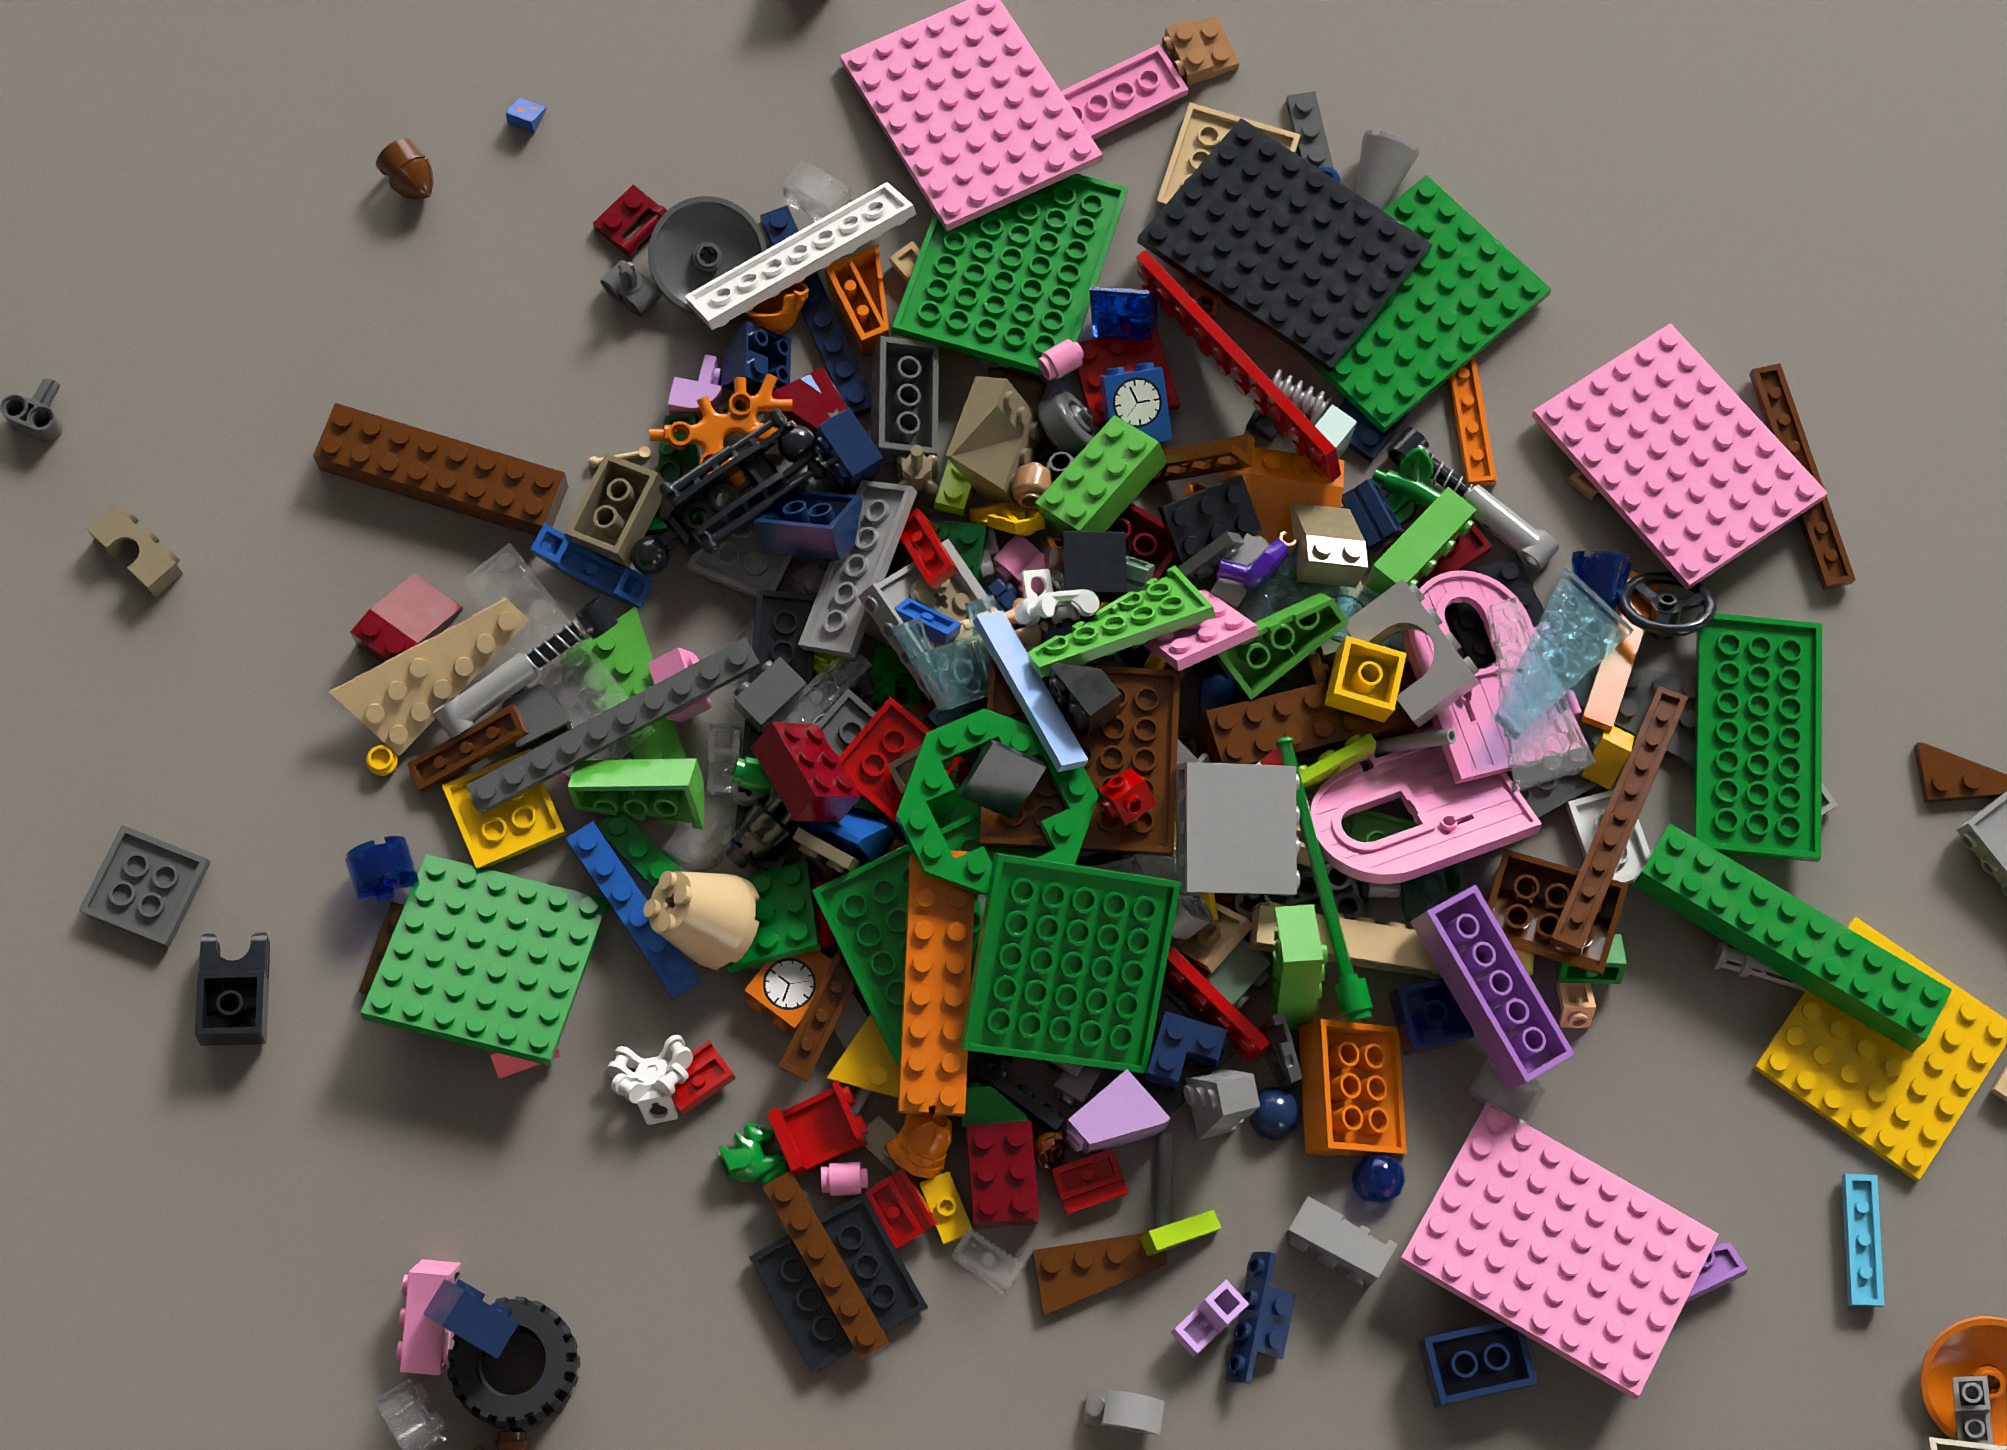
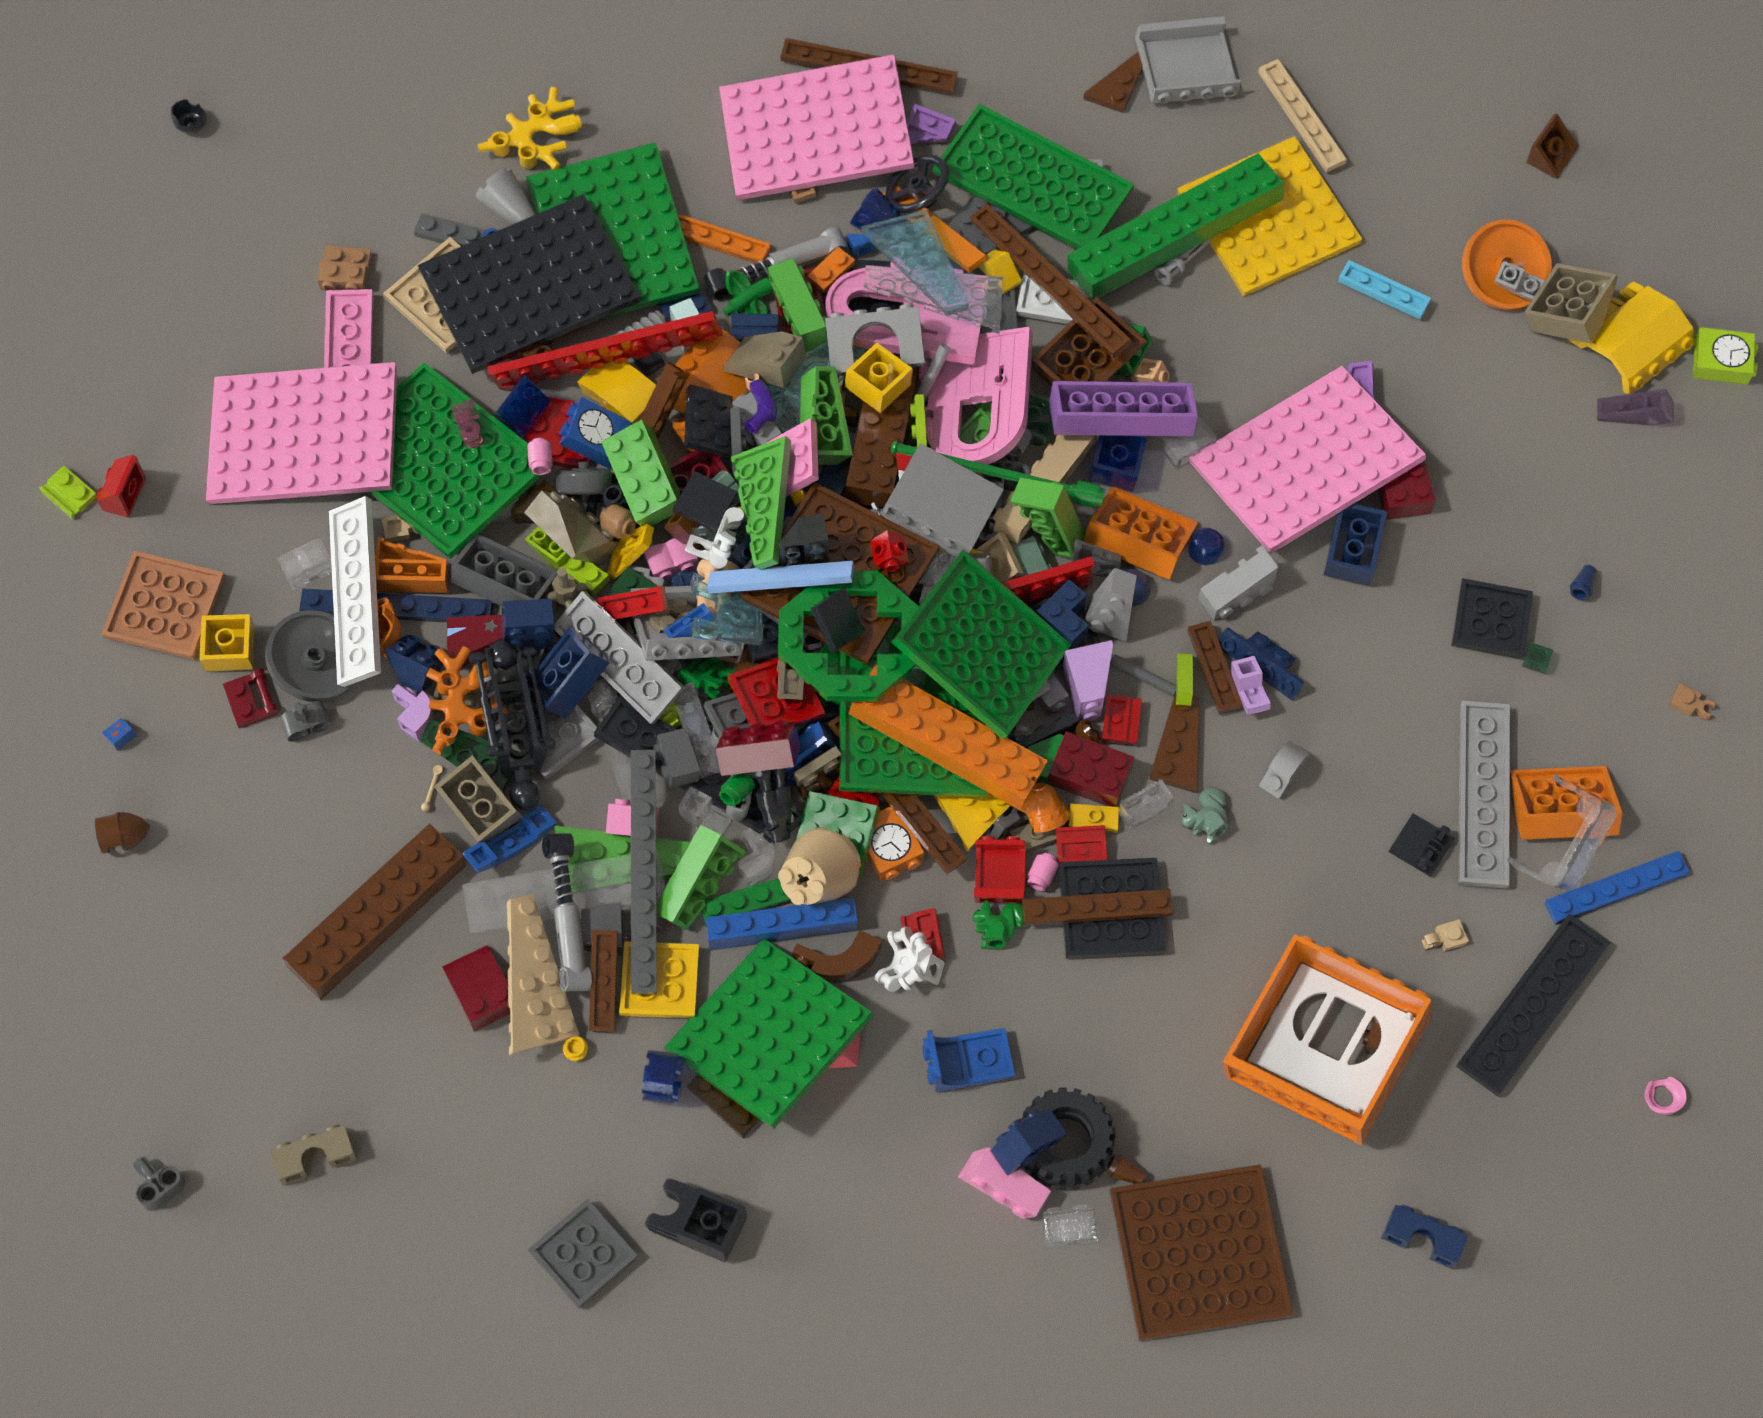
camera: 60 degrees left, 5 degrees down
(563, 1200) = (967, 1059): none -> blue bracket
(626, 1014) = (844, 966): none -> reddish brown arch
(679, 162) = (227, 642): none -> yellow brick
(695, 79) = (162, 604): none -> nougat plate
(880, 1105) = (1005, 824): none -> dark grey plate
(1017, 1351) = (1210, 818): none -> sand green animal
(1066, 264) = (470, 430): none -> clear pink leg
(1208, 406) = (618, 389): none -> yellow slope
(1217, 1263) = (1214, 667): none -> reddish brown plate
(1473, 143) = (523, 131): none -> yellow plant
(1497, 562) = (830, 270): none -> orange plate
(1549, 577) = (859, 245): none -> blue slope
(1585, 1401) = (1408, 494): none -> dark red brick
(1759, 581) = (928, 126): none -> medium lavender wing

